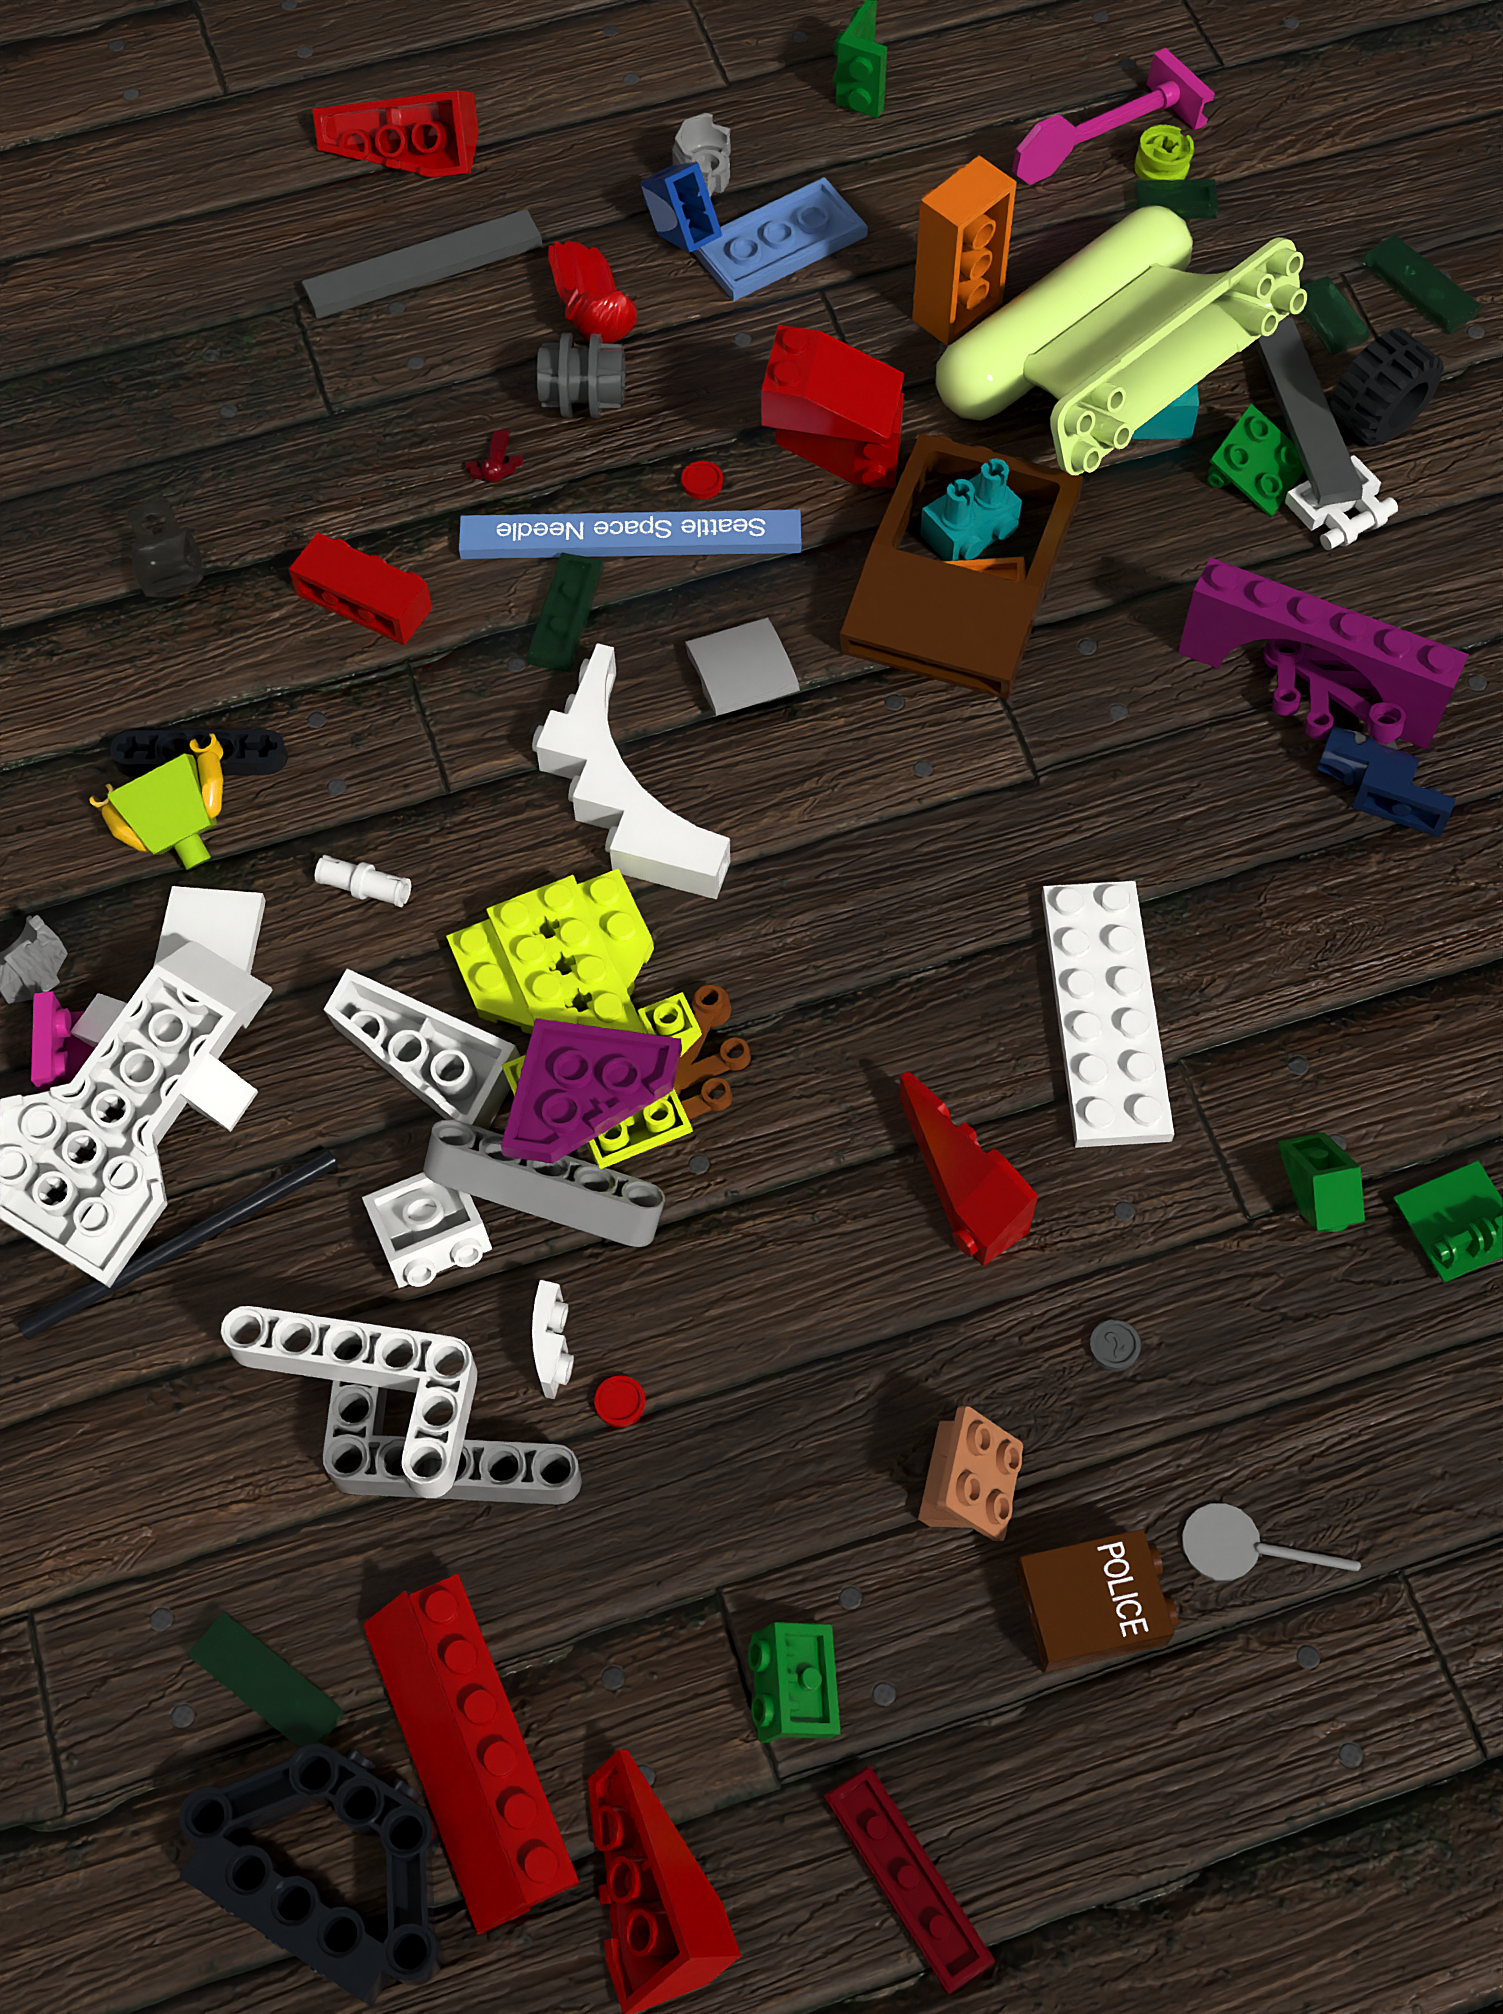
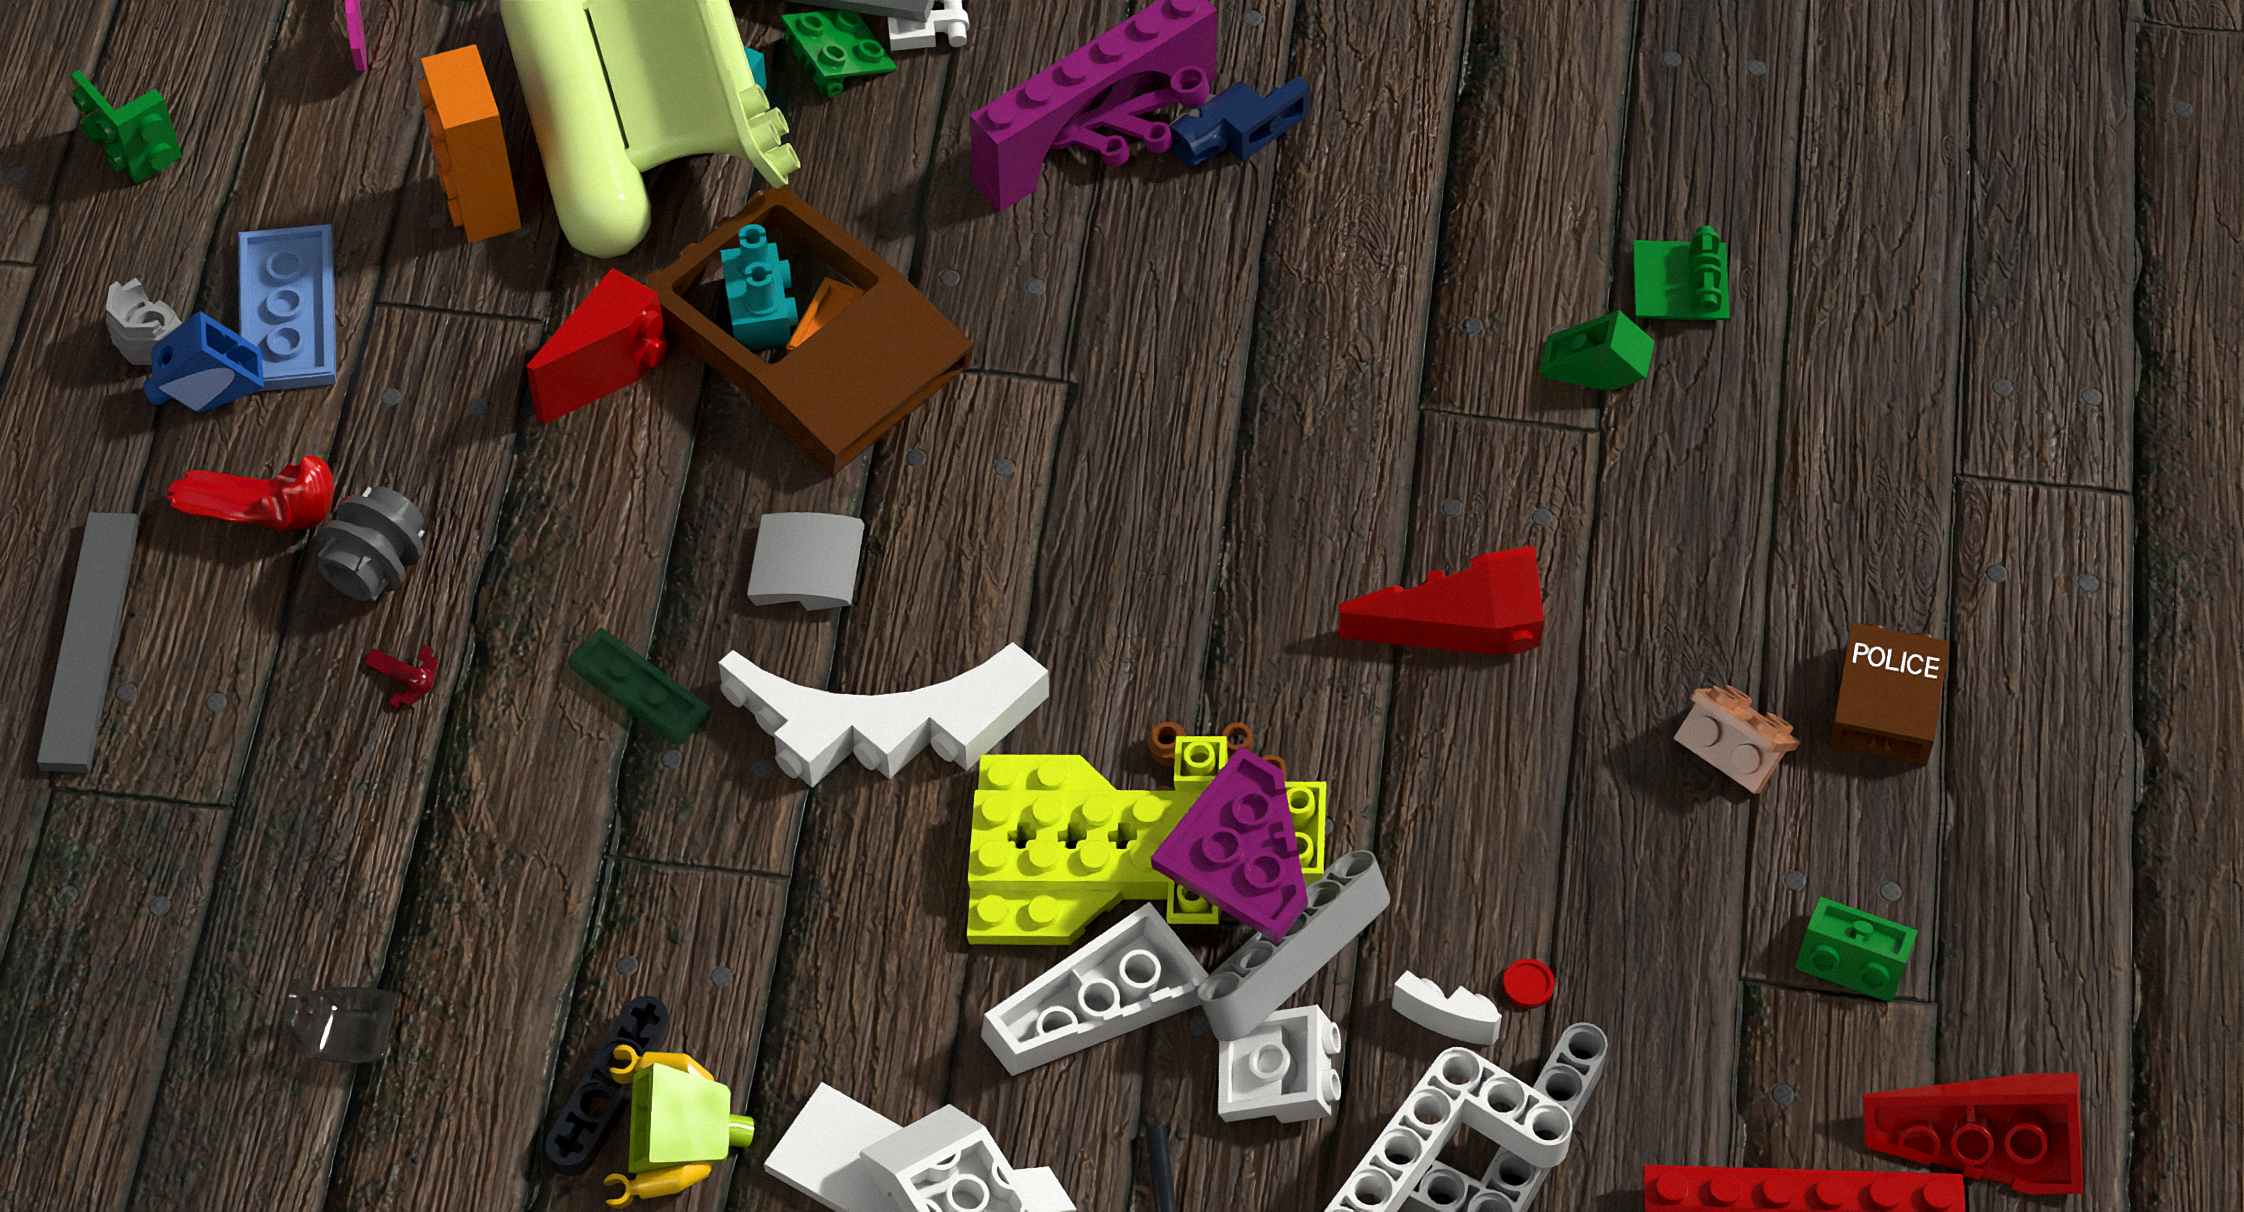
camera: 65 degrees left, 5 degrees down
(361, 588) = (500, 854): red brick -> none
(363, 880) = (860, 986): white pin -> none
(630, 534) = (578, 595): medium blue tile -> none
(702, 480) = (550, 504): red piece -> none
(828, 388) = (576, 324): red slope -> none
(909, 1880) = (2055, 937): dark red tile -> none
(1106, 1015) = (1346, 438): white plate -> none
(1115, 1345) = (1664, 580): dark grey piece -> none
(1226, 1544) = (1876, 584): light grey piece -> none

